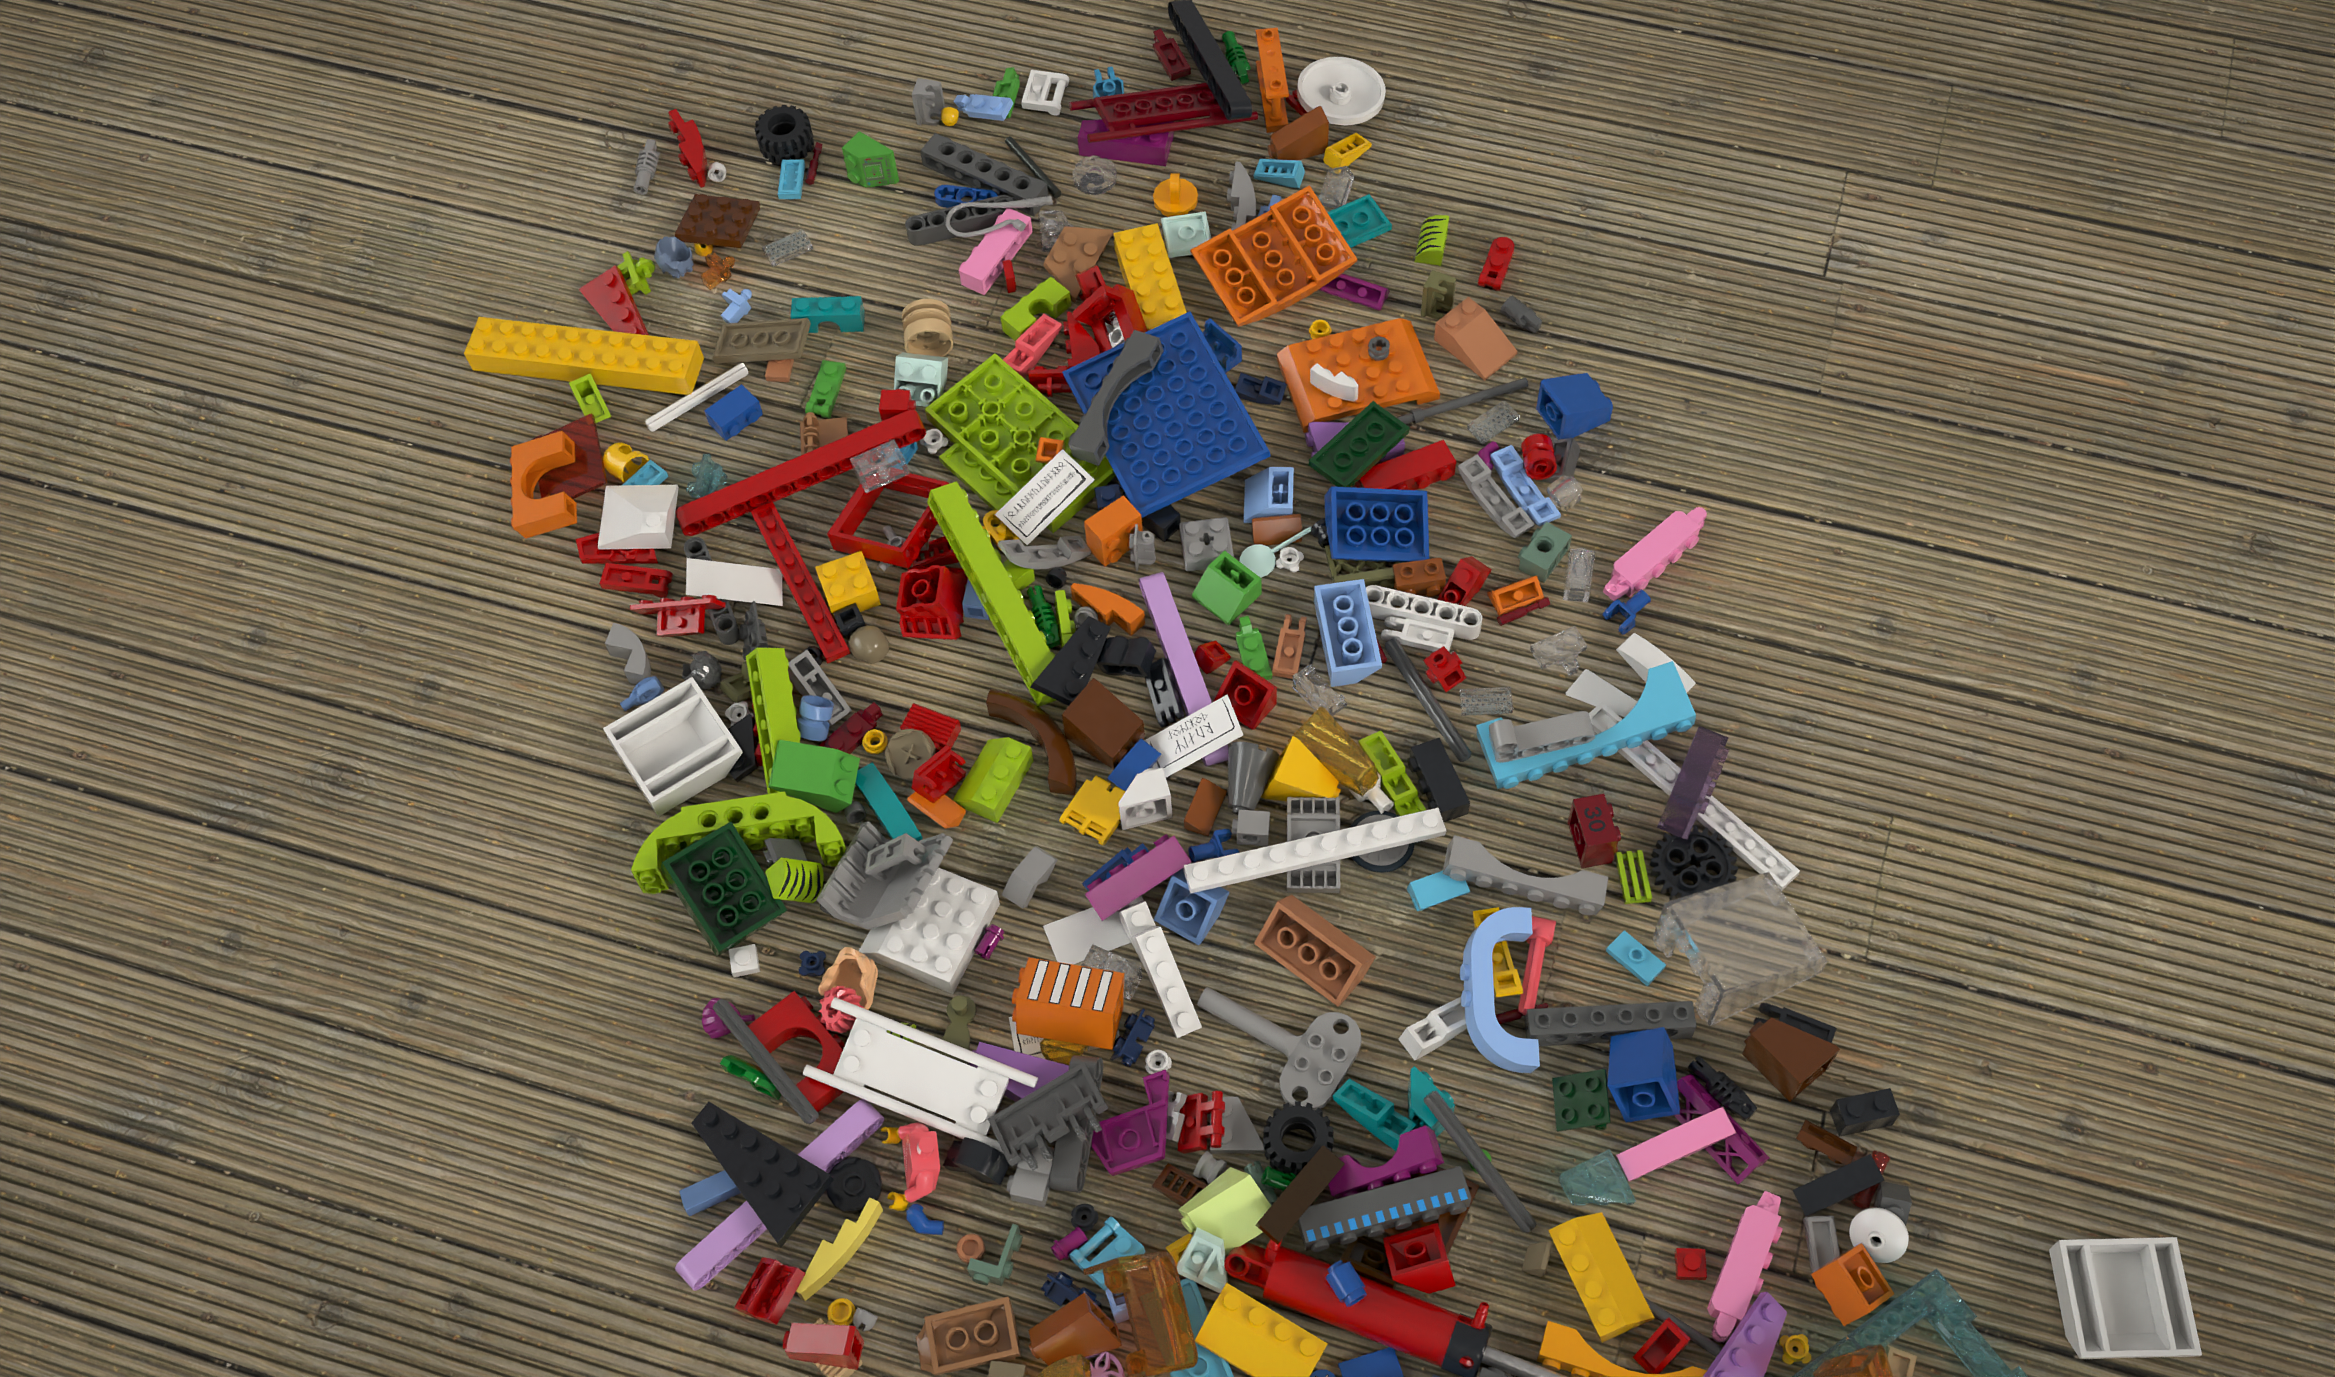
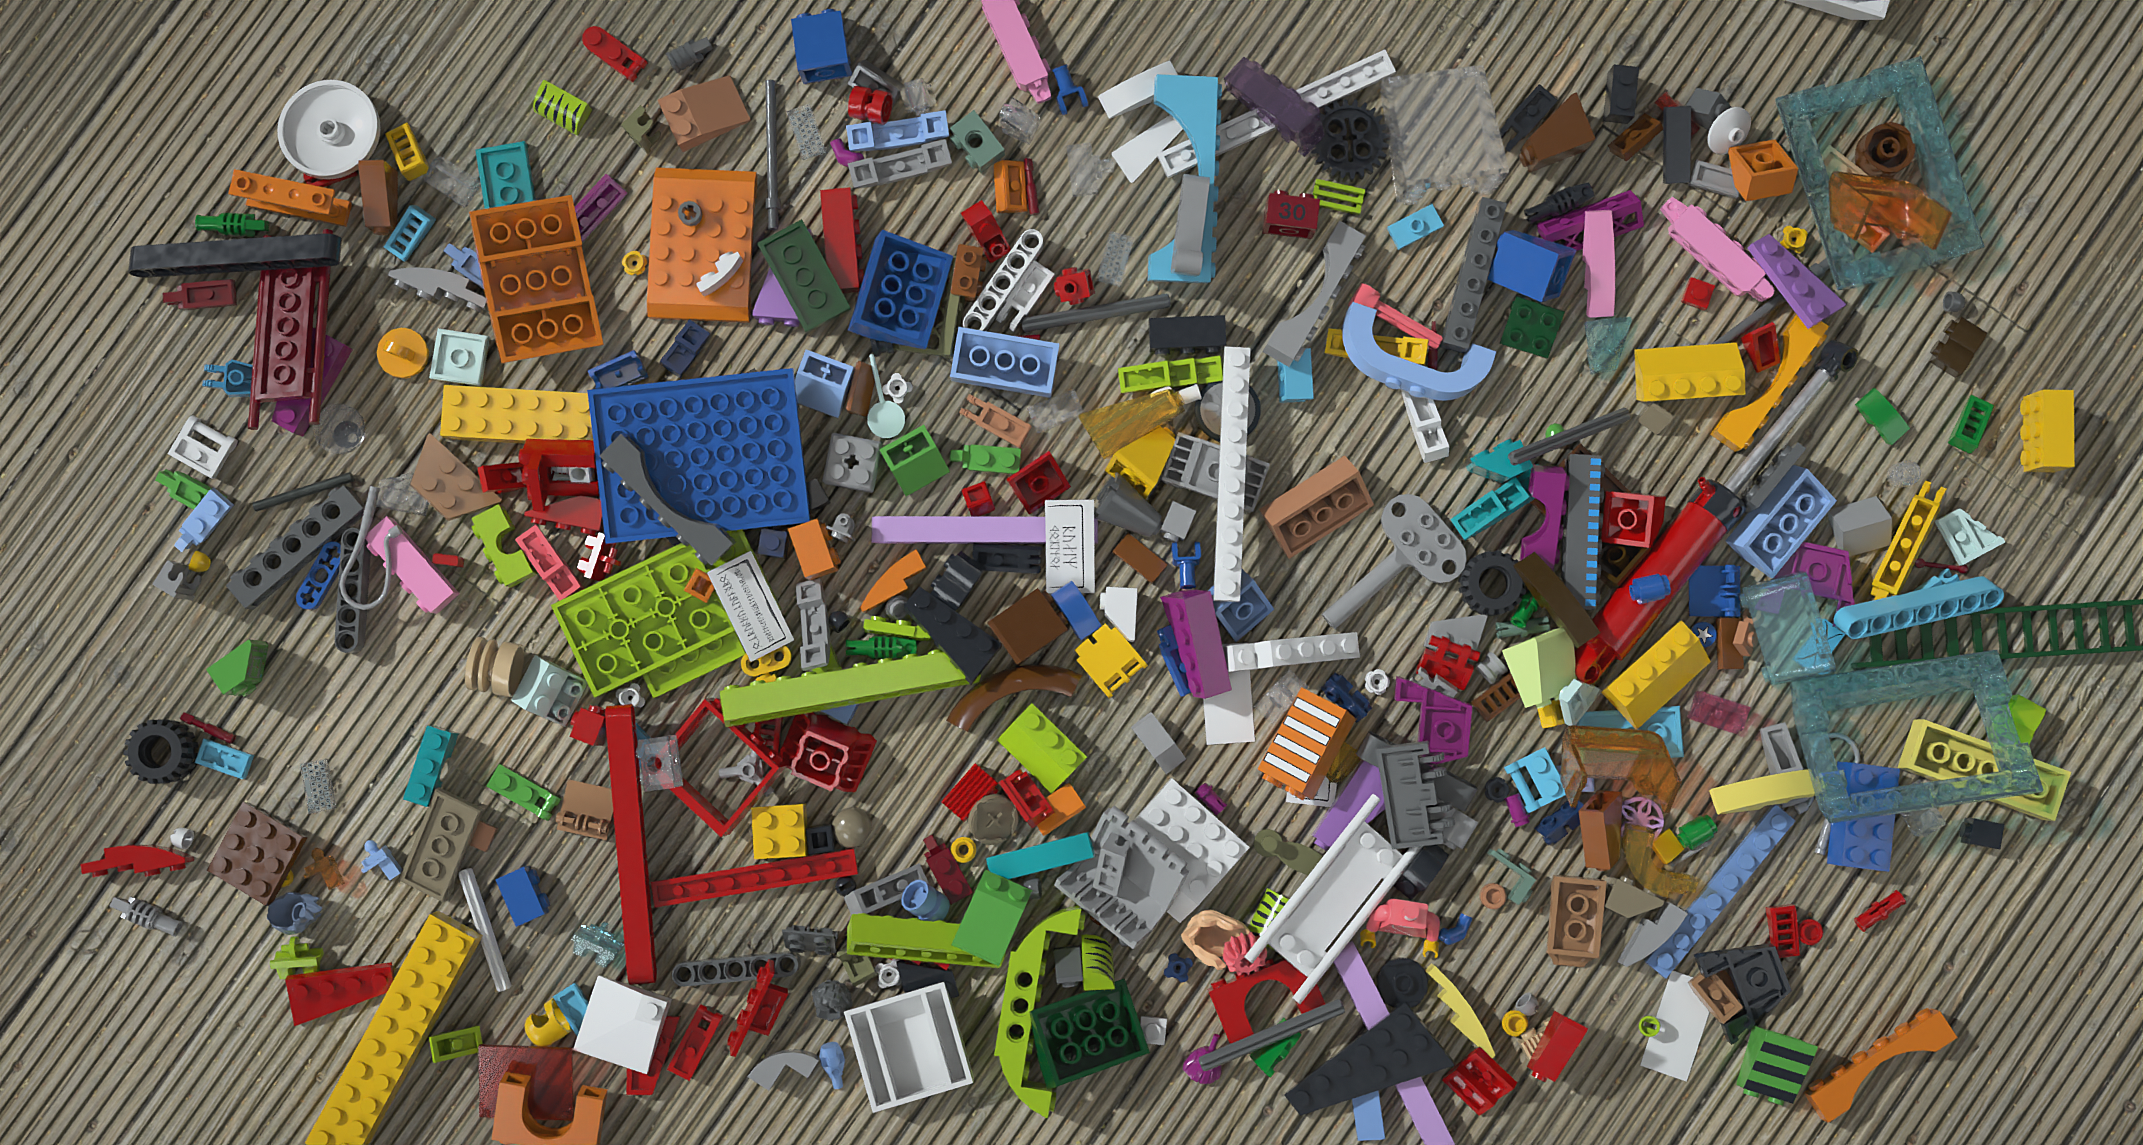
camera: 75 degrees left, 25 degrees up
(734, 581) = (739, 944): white sticker -> none

